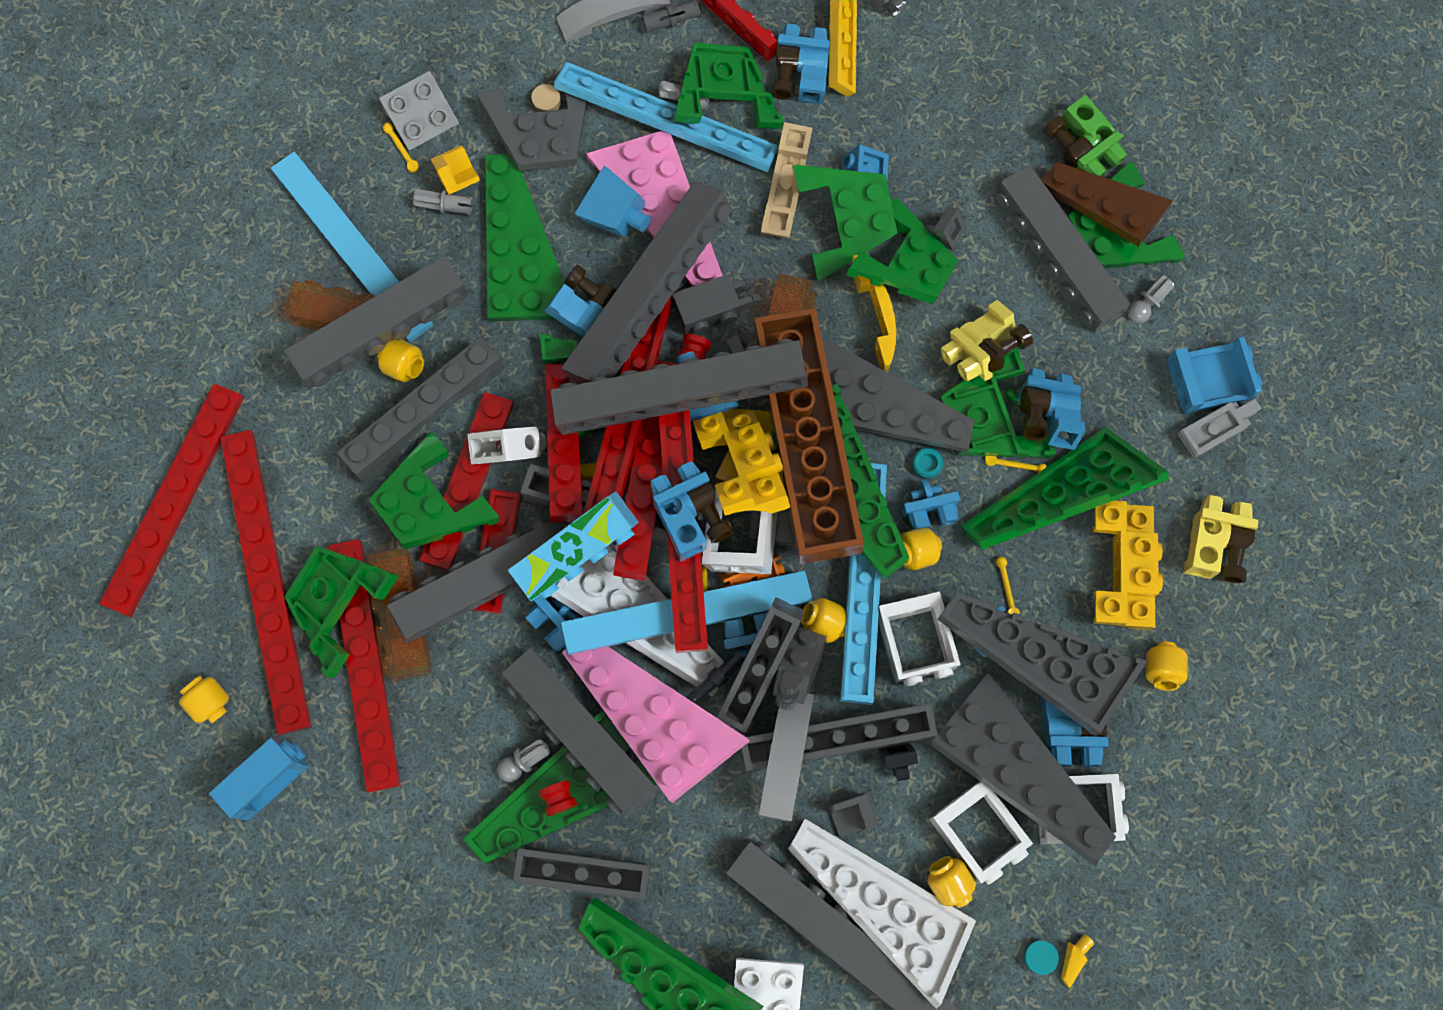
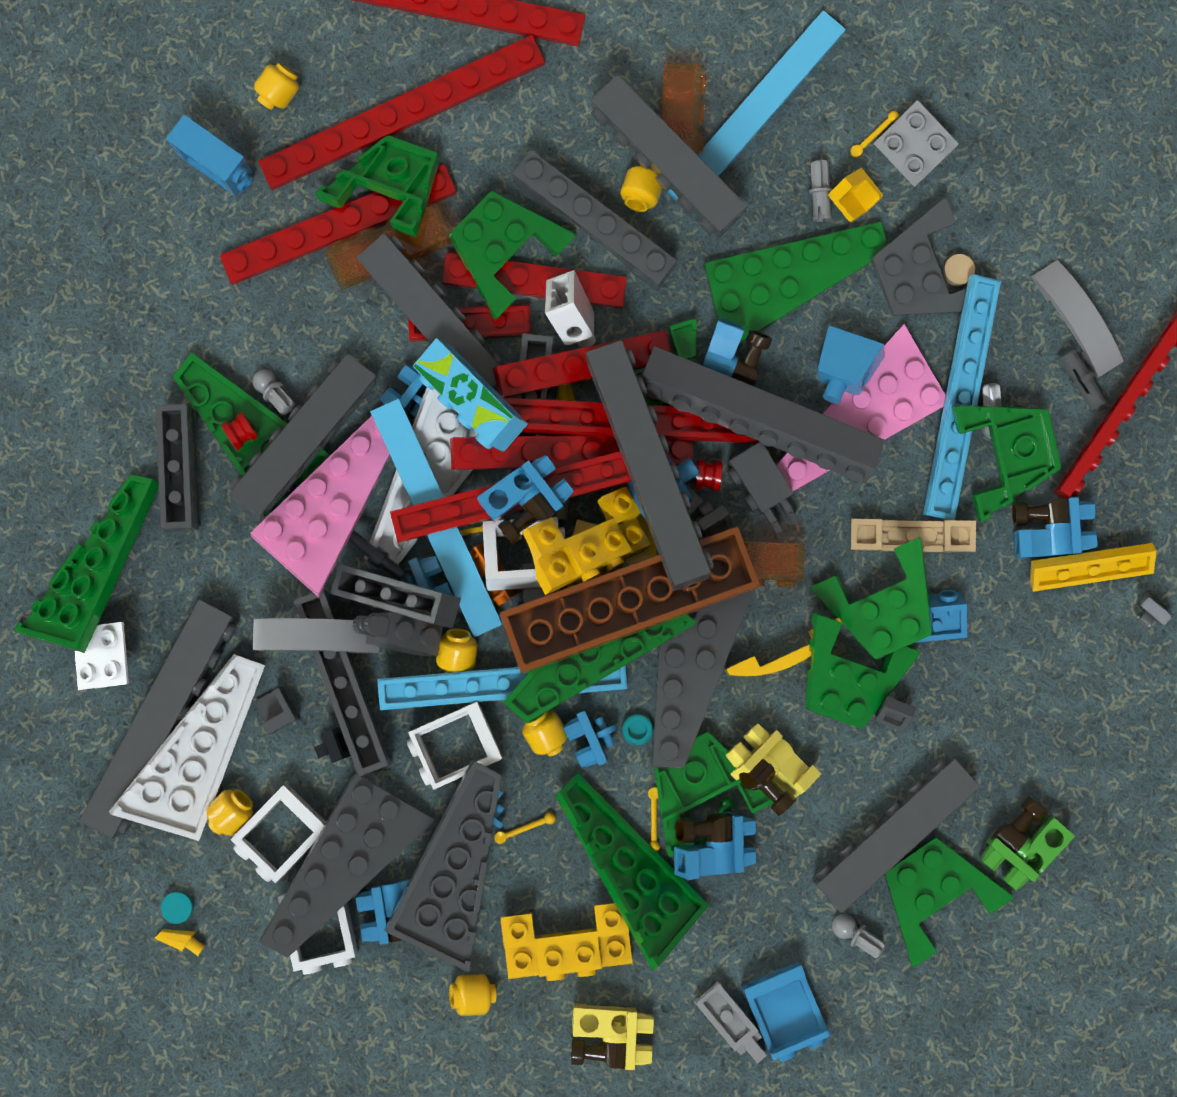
camera: 80 degrees right, 10 degrees up
(1111, 204) = (955, 877): reddish brown wing -> none

